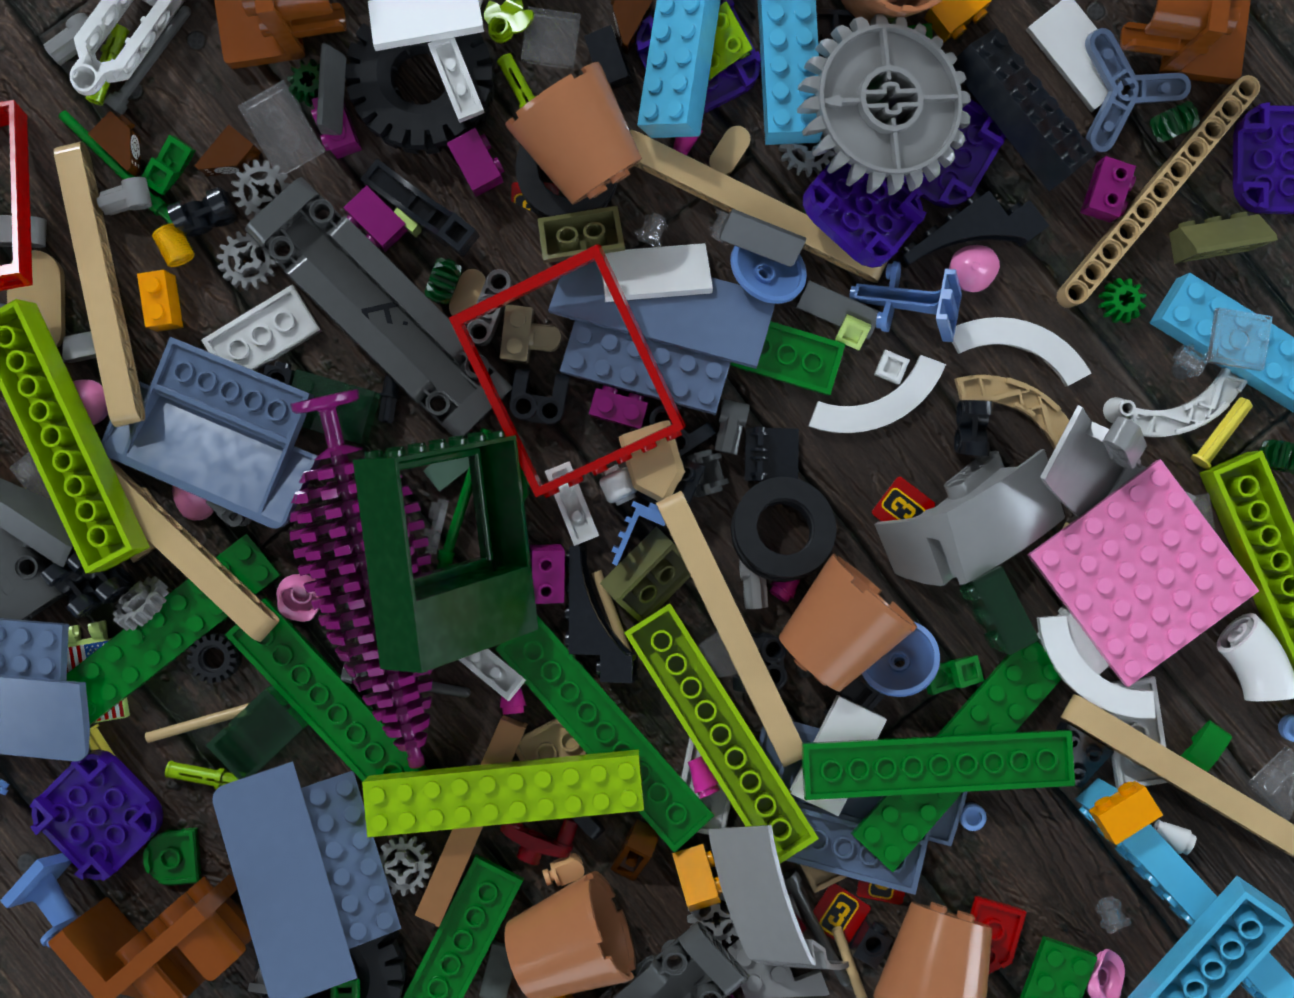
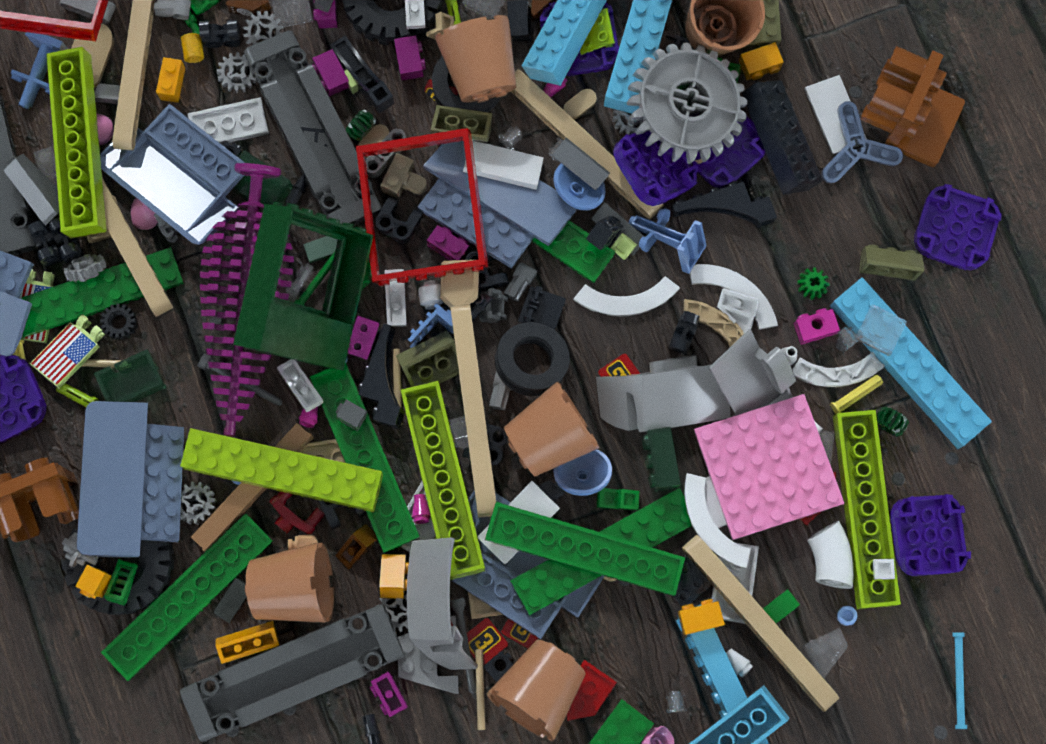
camera: 15 degrees right, 10 degrees down
(161, 722) = (68, 351): none -> tile
(174, 857) = (40, 444): green tile -> none
(293, 599) = (188, 300): bright pink hat -> none
(322, 698) = (180, 370): green plate -> none
(507, 101) = (442, 22): none -> tan panel
(568, 686) = (351, 415): none -> dark grey brick
(784, 590) = (521, 401): dark pink cone -> none
(826, 324) = (605, 232): none -> black brick
(891, 367) = (643, 278): white tile -> none
(973, 816) = (600, 602): light blue tile -> none
(975, 267) = (720, 230): bright pink hat -> none
(1034, 367) = (739, 308): none -> white wing
(1109, 189) = (826, 207): magenta brick -> none
(1158, 353) = (807, 333): none -> dark pink brick
(1166, 183) = (865, 214): tan beam -> none
(1174, 122) = (883, 177): dark green gear -> none

